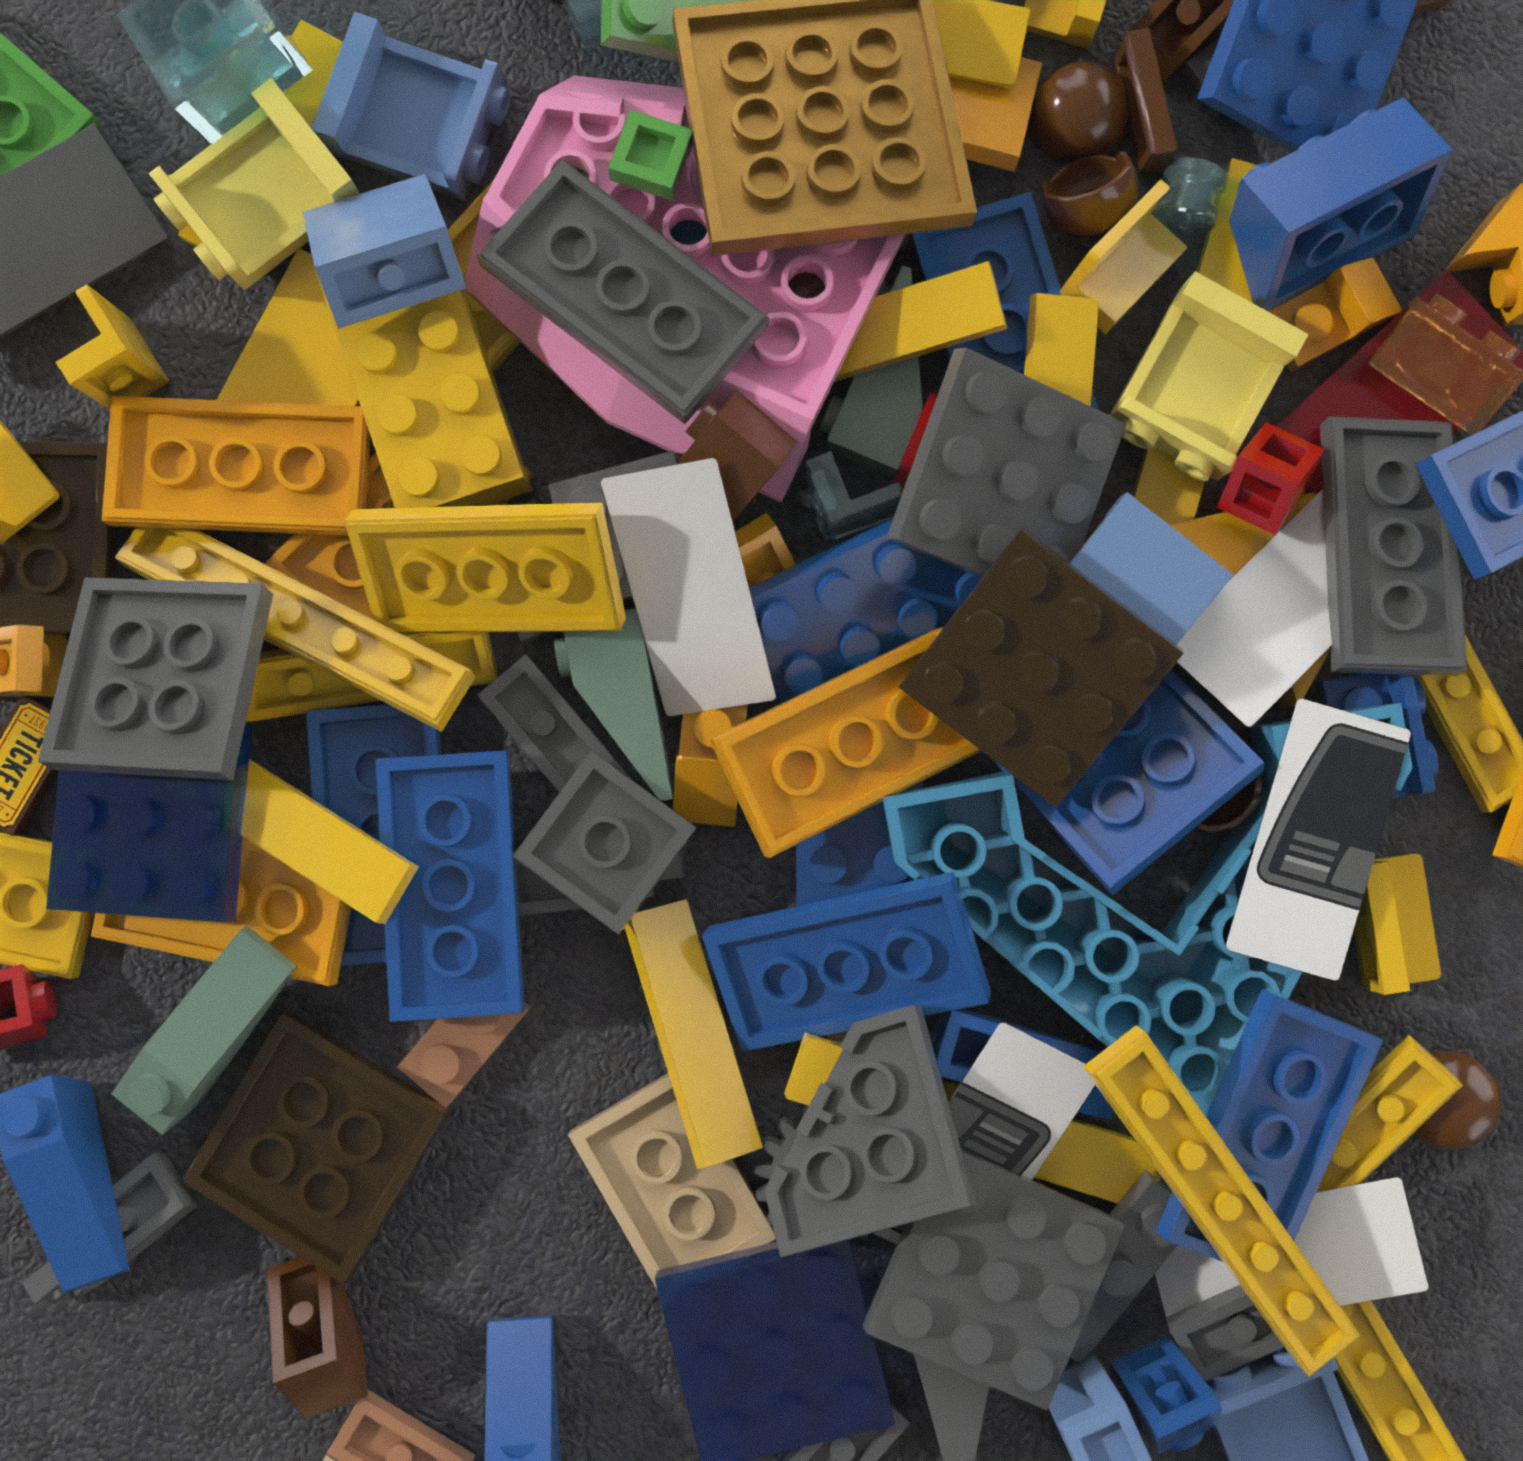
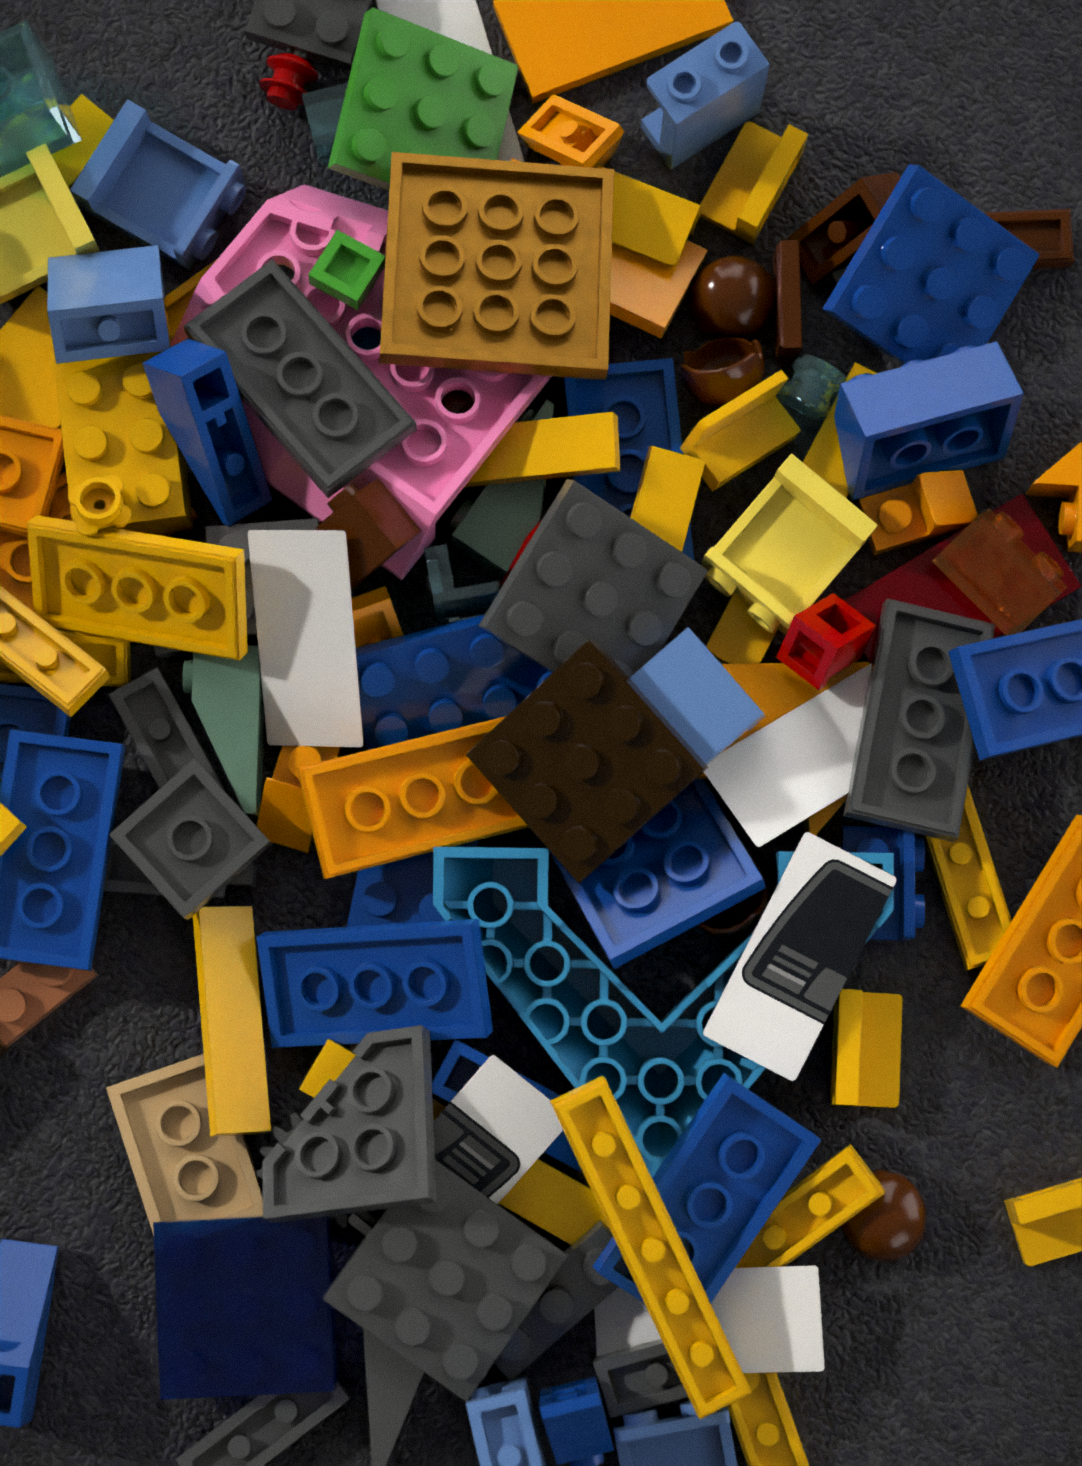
camera: 15 degrees right, 5 degrees down
(413, 468) = (94, 490): none -> yellow plate
(529, 366) = (210, 426): none -> blue slope

